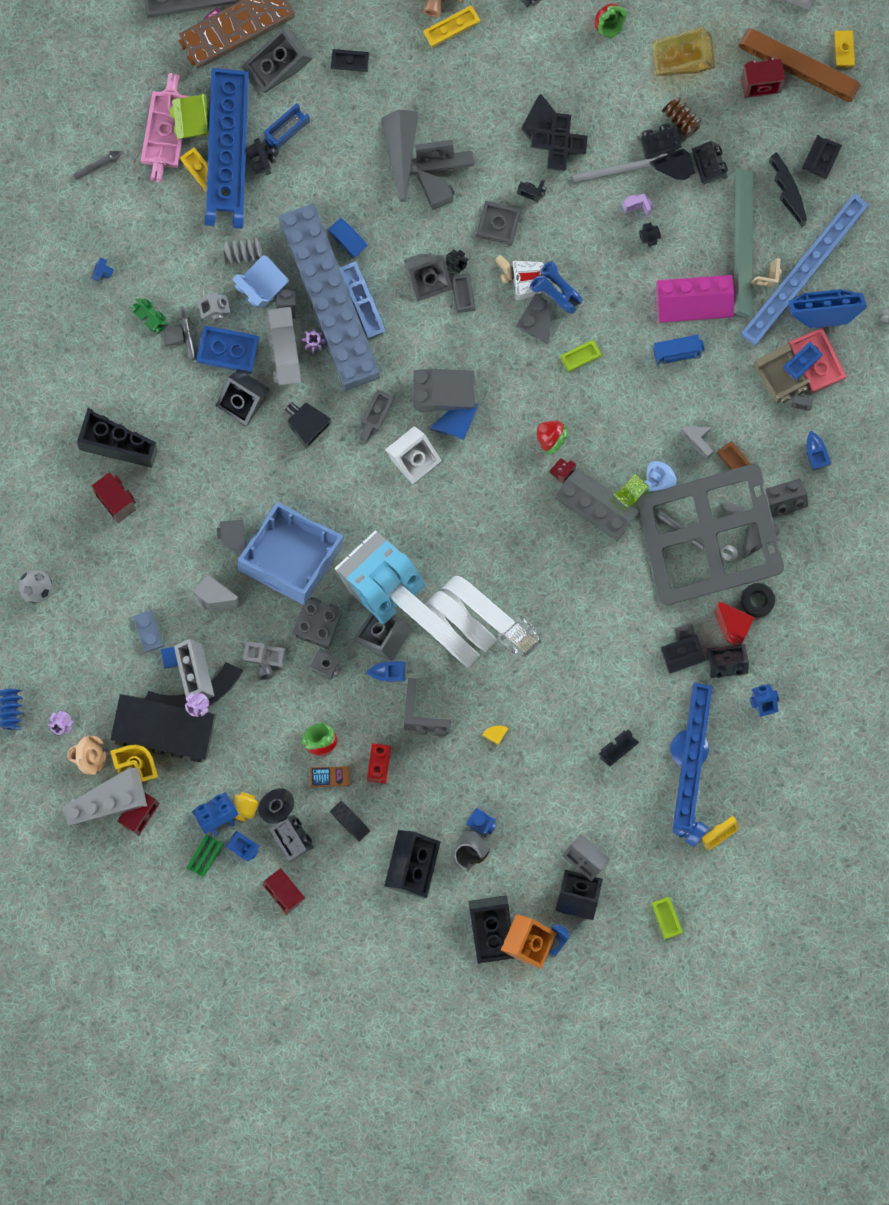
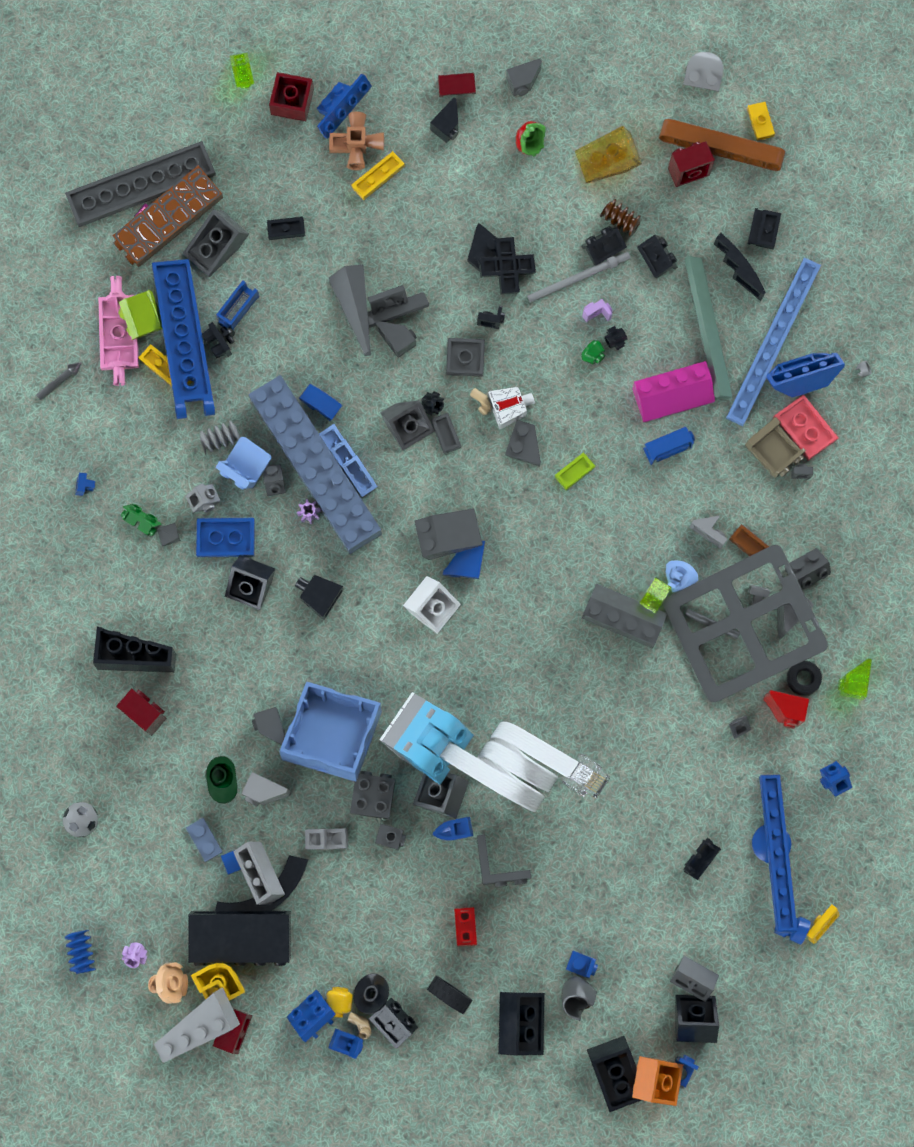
camera: 10 degrees left, 0 degrees up
(176, 577) = (221, 779): none -> dark green piece
(184, 318) = (175, 515): flat silver piece -> none
(197, 704) = (269, 909): lavender gear -> none
(197, 853) = (304, 1077): green tile -> none
(261, 833) = (362, 1024): none -> tan arm
(264, 672) = (330, 857): dark grey hinge -> none
(283, 891) = (397, 1081): dark red hinge -> none
(284, 346) = (281, 524): light grey brick -> none
(320, 739) = (400, 915): bright green hair -> none
(329, 776) = (418, 950): tile -> none
(375, 414) = (385, 572): dark grey hinge -> none
(495, 733) = (575, 870): yellow tile -> none
(542, 284) = (522, 408): blue piece -> none
(551, 435) = (565, 557): red hair -> none
(562, 470) = (582, 588): dark red bracket -> none
(624, 244) = (593, 352): none -> green cone
(666, 918) = (788, 1022): lime tile -> none
(676, 165) = (625, 265): black slope -> none
(682, 654) = (743, 748): black plate -> none
(728, 557) = (769, 634): light grey hinge -> none
(728, 661) = (789, 746): black bracket -> none
(774, 275) = (745, 353): tan bracket -> none
(802, 361) = (793, 431): blue plate -> none
(806, 613) = (856, 681): none -> clear neon green slope
(817, 452) = (827, 518): blue plate -> none

